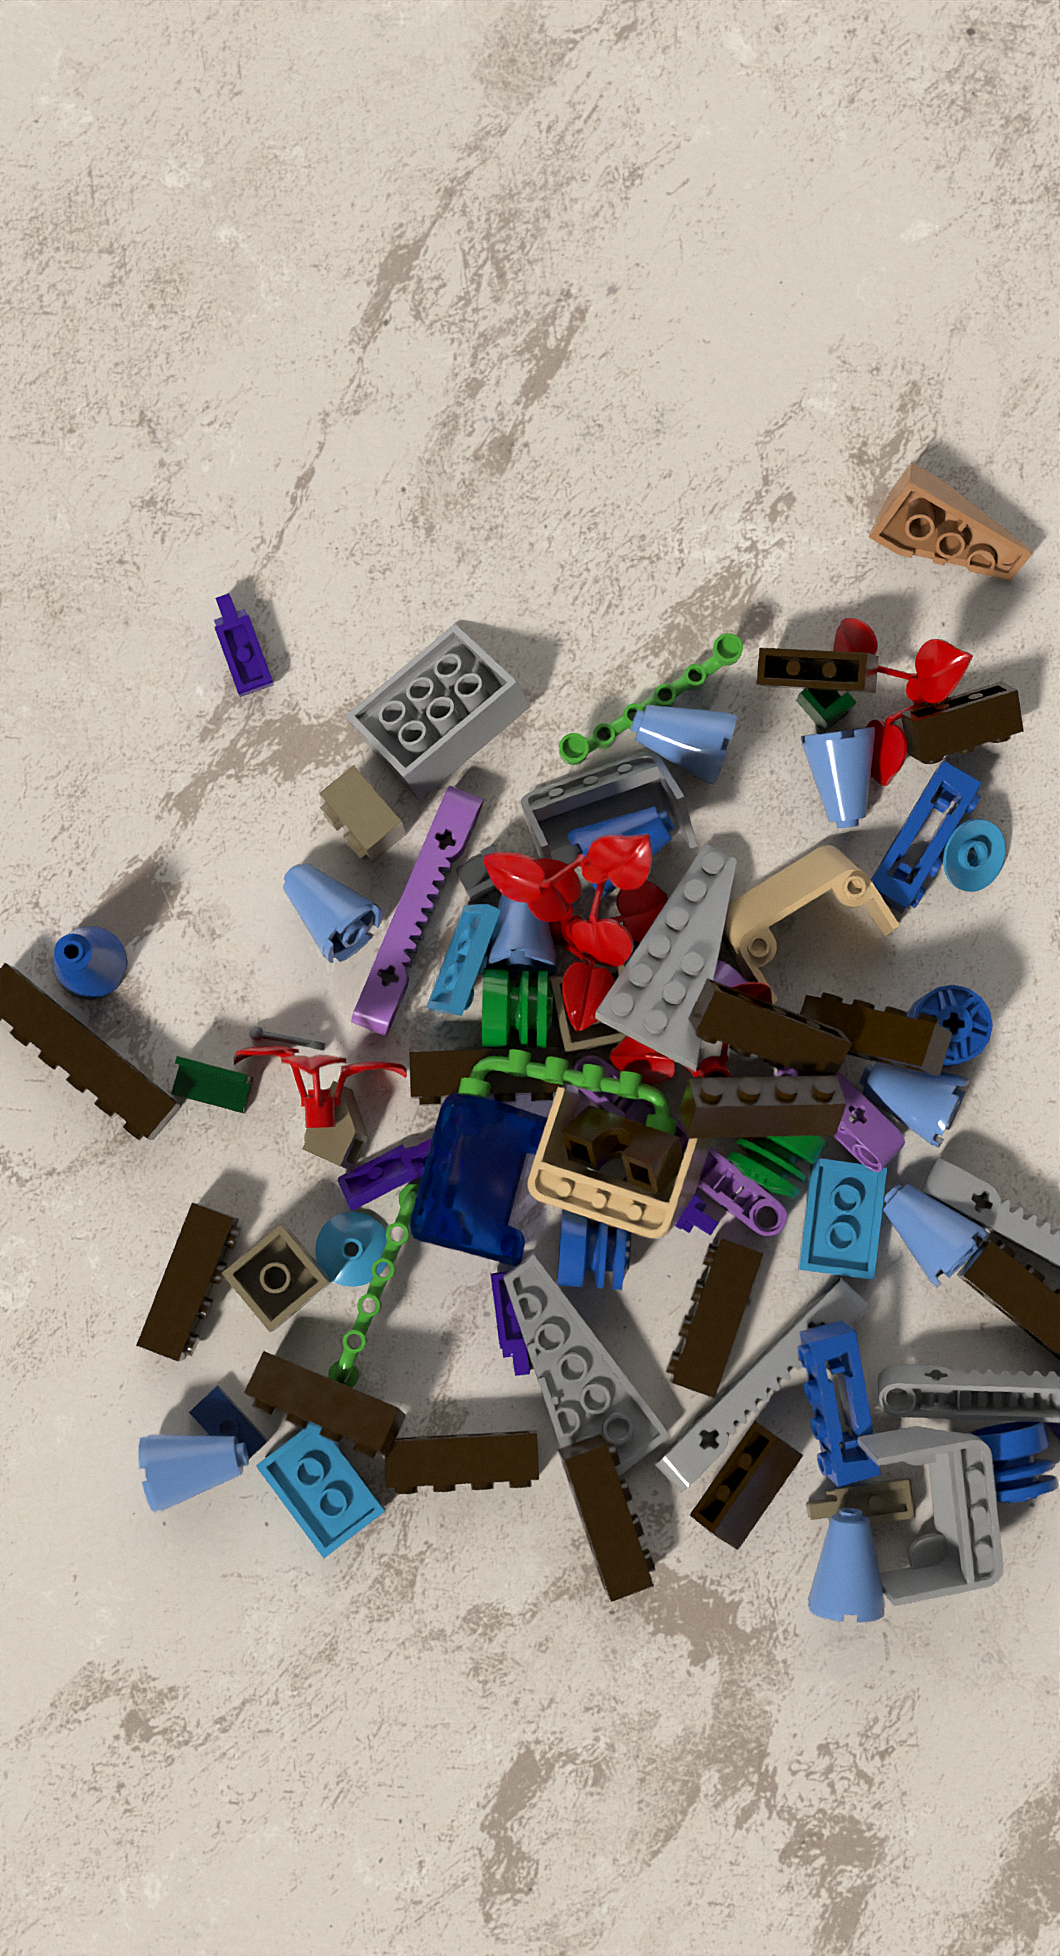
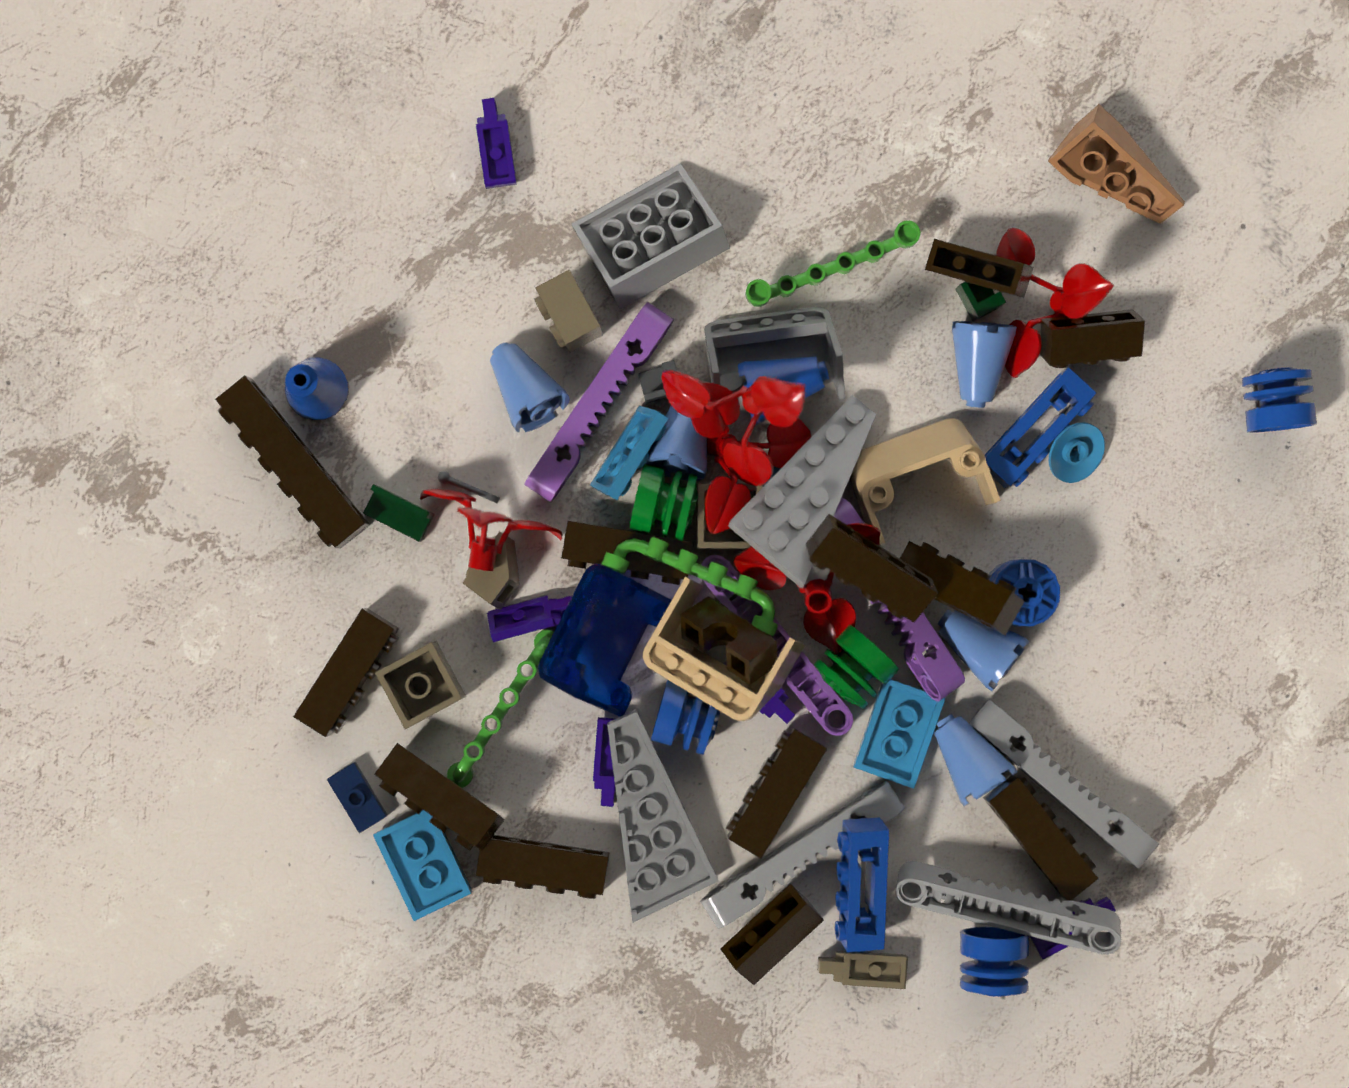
camera: 10 degrees right, 5 degrees up
(187, 1466) = (316, 824): medium blue cone -> none
(331, 1244) = (475, 659): dark azure dish -> none
(606, 1516) = (651, 936): dark brown brick -> none
(687, 737) = (856, 302): medium blue cone -> none
(762, 1106) = (851, 630): dark brown brick -> none
(847, 1571) = (839, 1022): medium blue cone -> none
(967, 1539) = (943, 1017): light grey windscreen -> none

